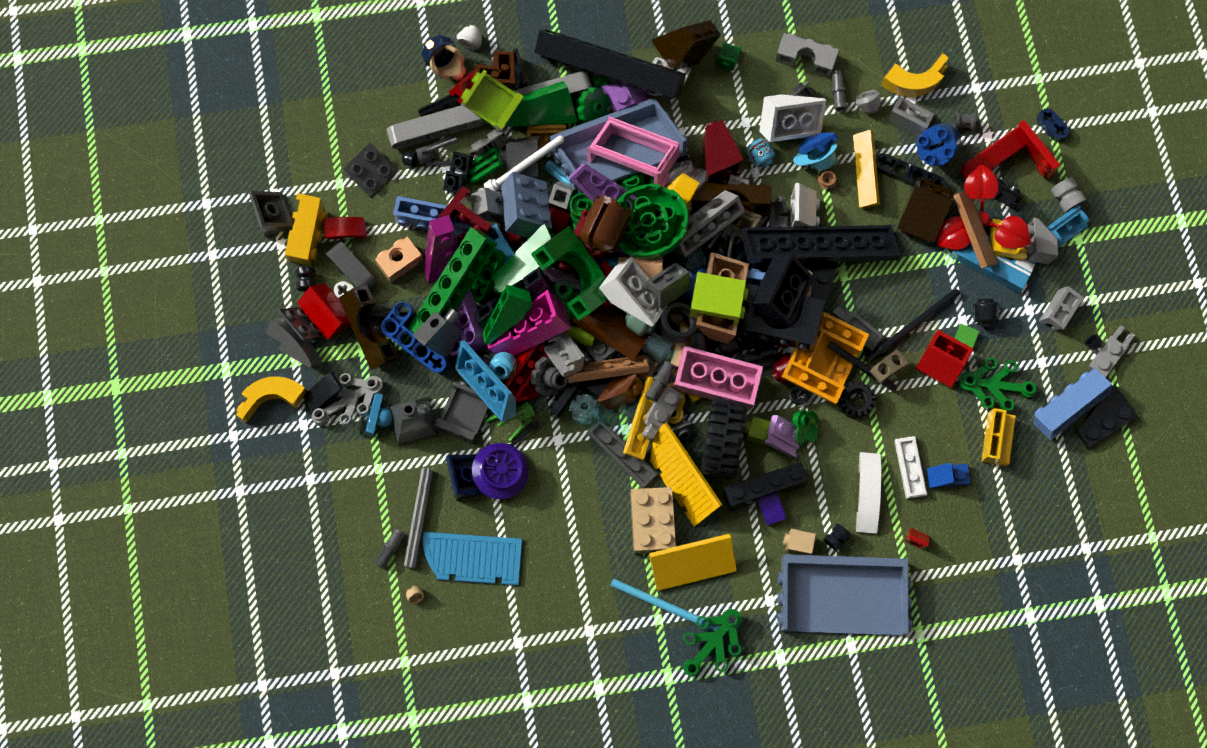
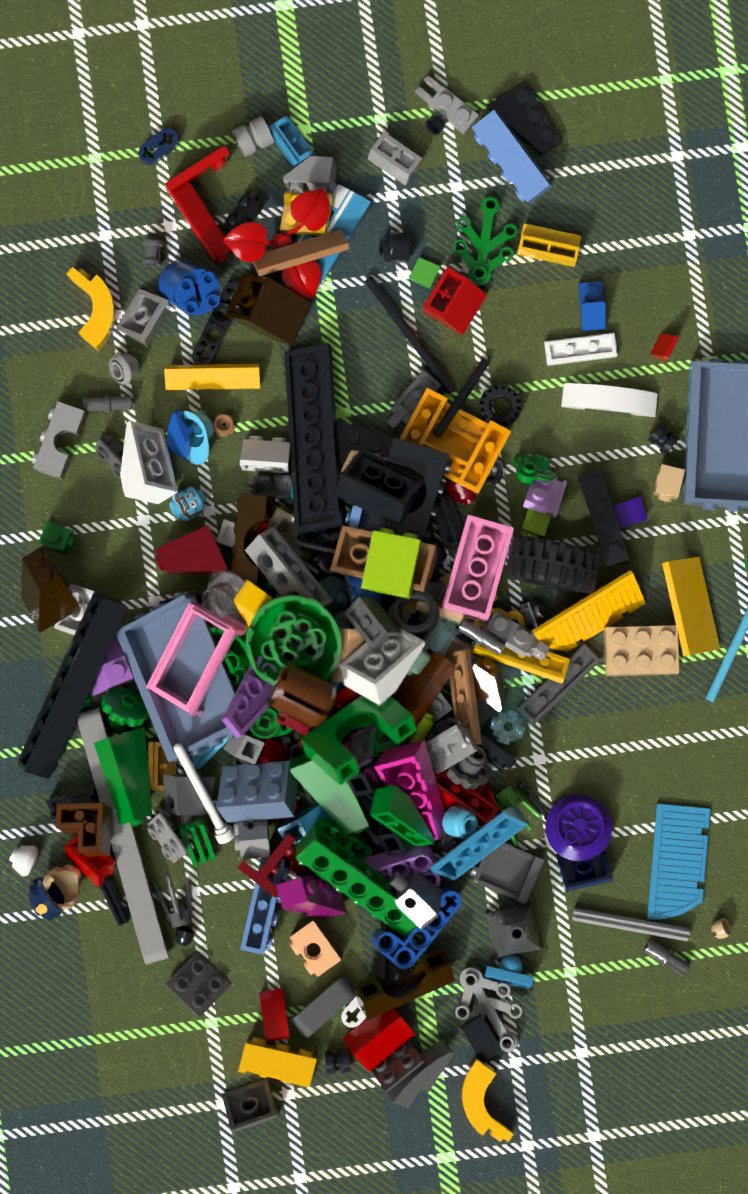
camera: 85 degrees left, 10 degrees up
(459, 172) = (207, 875): black slope -> none
(490, 100) = (127, 831): lime panel -> none
(887, 367) = (464, 367): dark tan leg -> none

